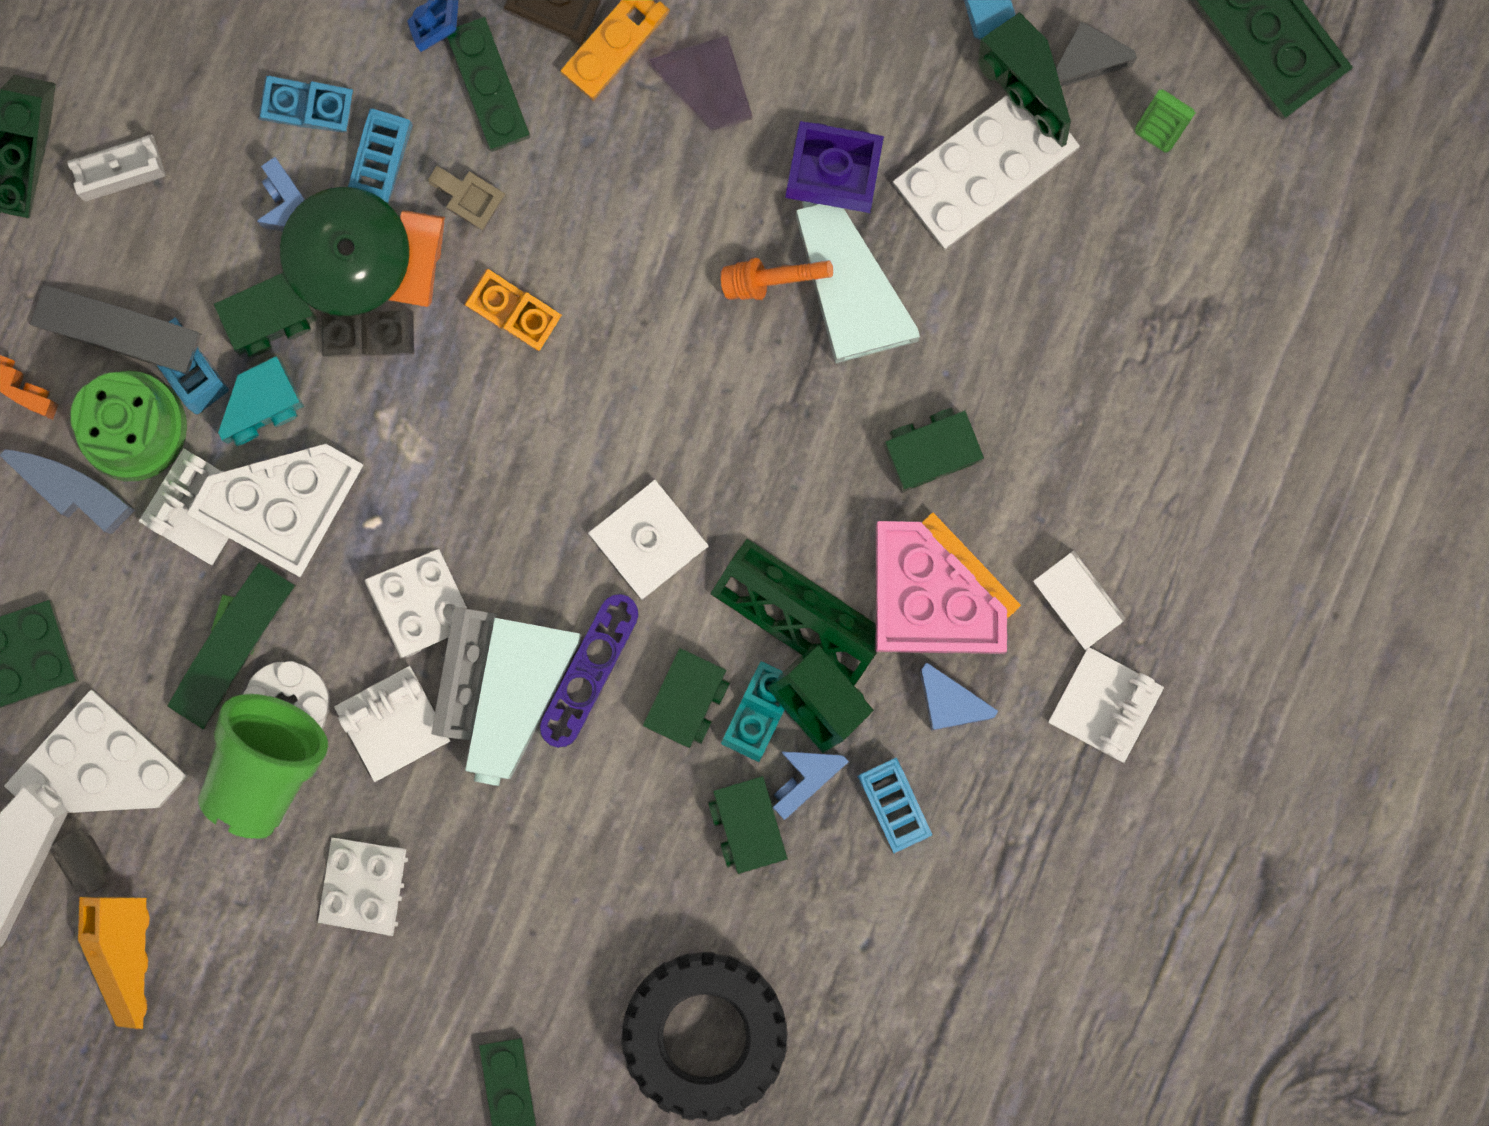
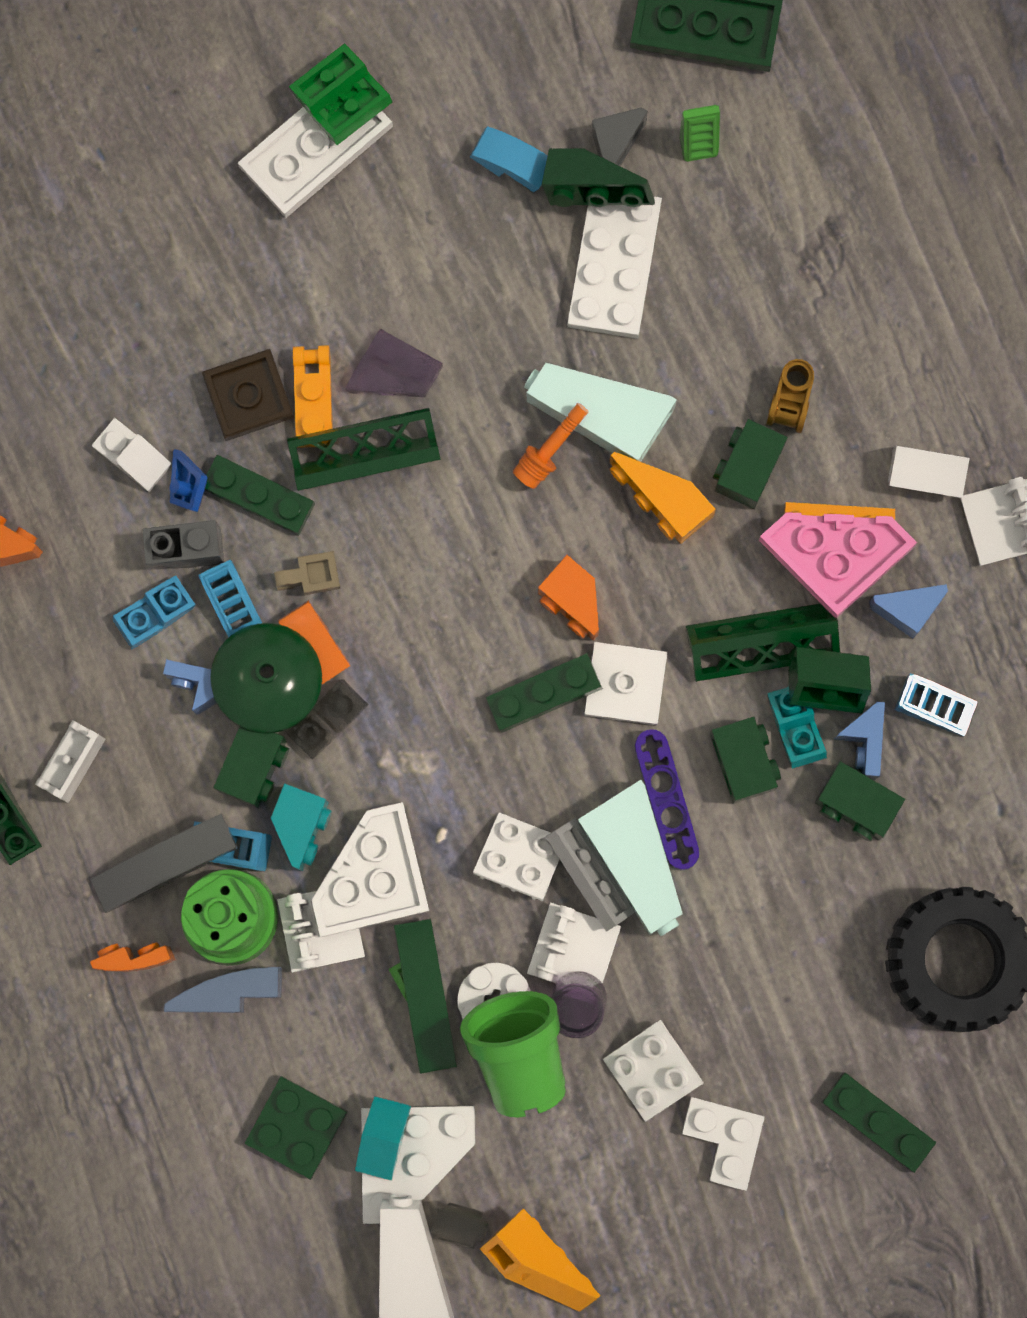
camera: 35 degrees left, 5 degrees down
(83, 730) = (382, 1138): none -> teal slope
(350, 772) = (579, 1003): none -> piece
(382, 70) = (184, 545): none -> dark grey slope
(382, 999) = (736, 1136): none -> white plate
(512, 310) = (405, 619): light orange slope -> none
(571, 483) = (544, 693): none -> dark green plate
(604, 141) = (367, 461): none -> dark green fence
(674, 422) = (573, 594): none -> orange slope
(834, 166) = (525, 344): dark purple plate -> none
(836, 417) = (671, 498): none -> light orange slope
(1022, 427) = (791, 402): none -> pearl gold piece

